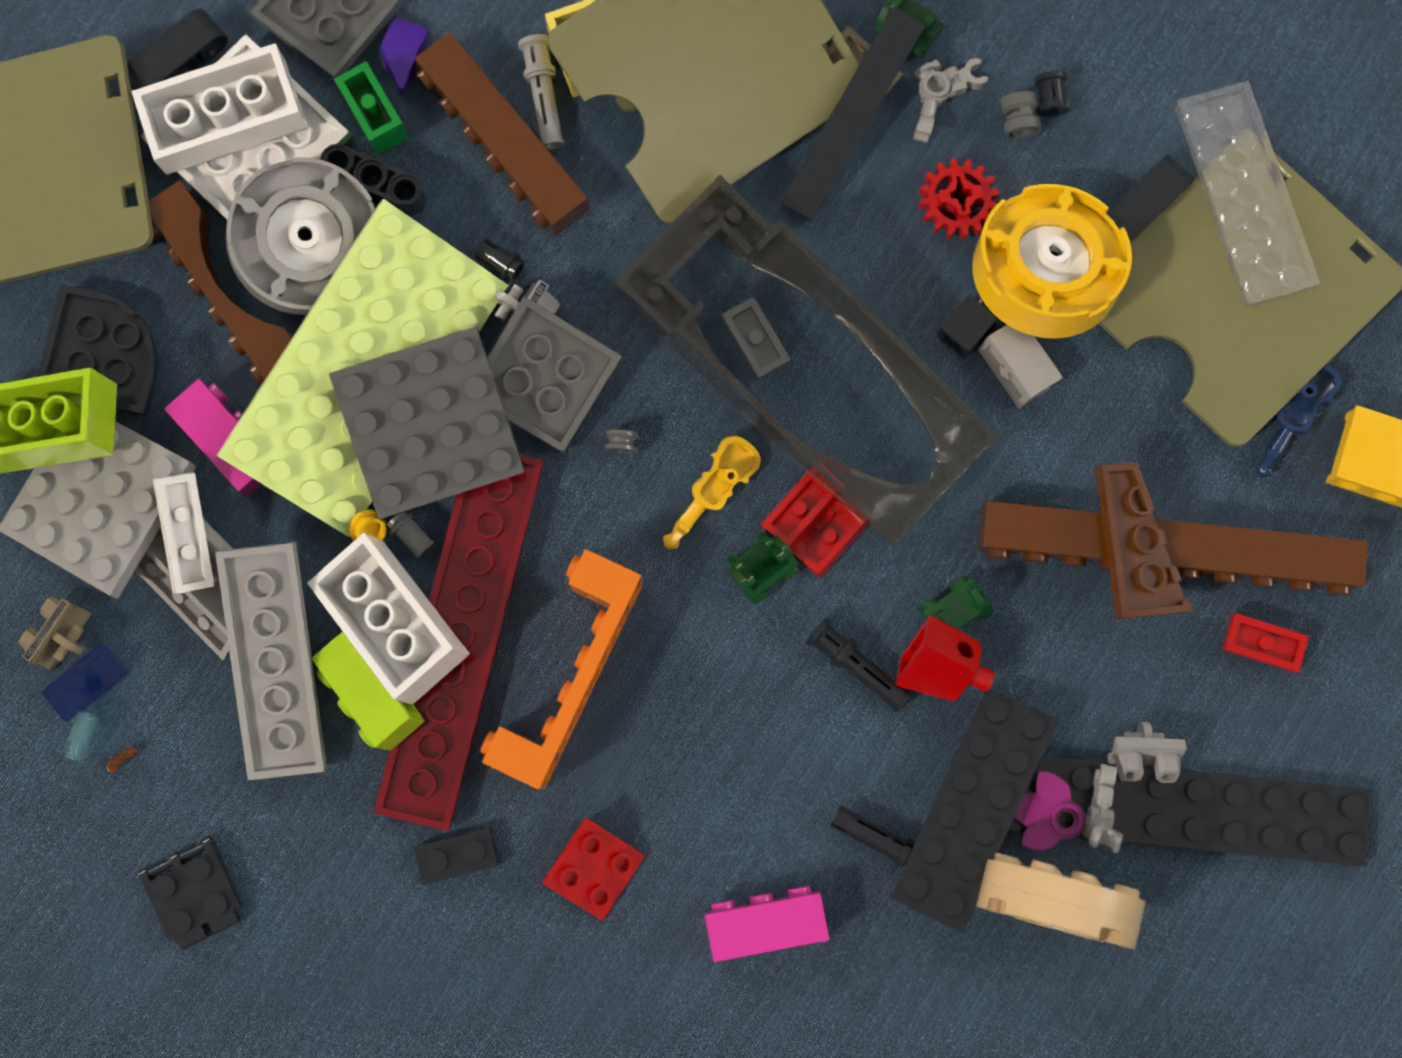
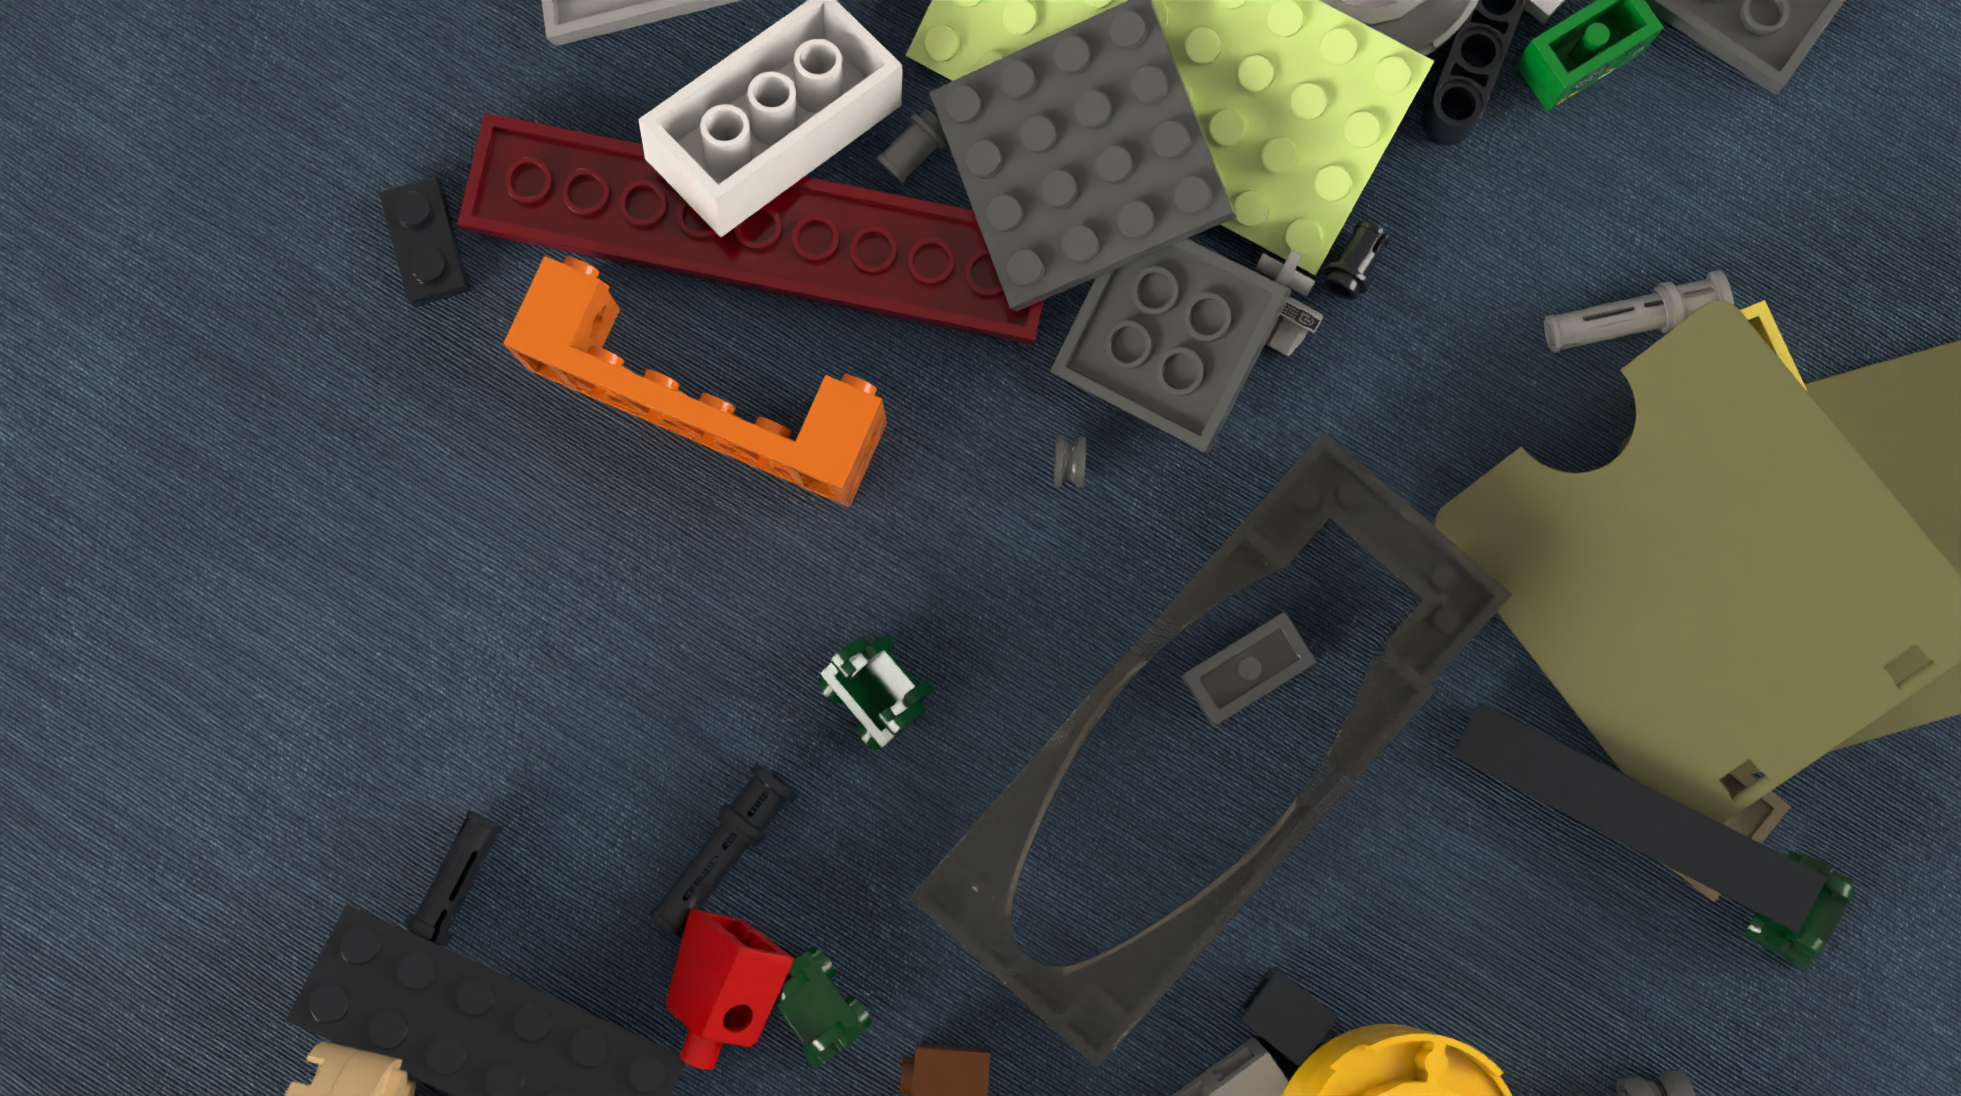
camera: 90 degrees right, 0 degrees up
(363, 696) = (610, 106): lime brick -> none
(367, 522) = (920, 76): yellow plate -> none
(399, 50) = (1690, 91): dark purple slope -> none
(501, 133) = (1562, 251): reddish brown brick -> none
(593, 868) = (403, 444): red hinge -> none
(733, 462) = (1043, 639): yellow piece -> none
(766, 924) = (315, 712): dark pink brick -> none
(814, 525) = (947, 771): red slope -> none
(938, 86) = (1698, 964): light grey piece -> none
(942, 202) = (1496, 974): red gear -> none

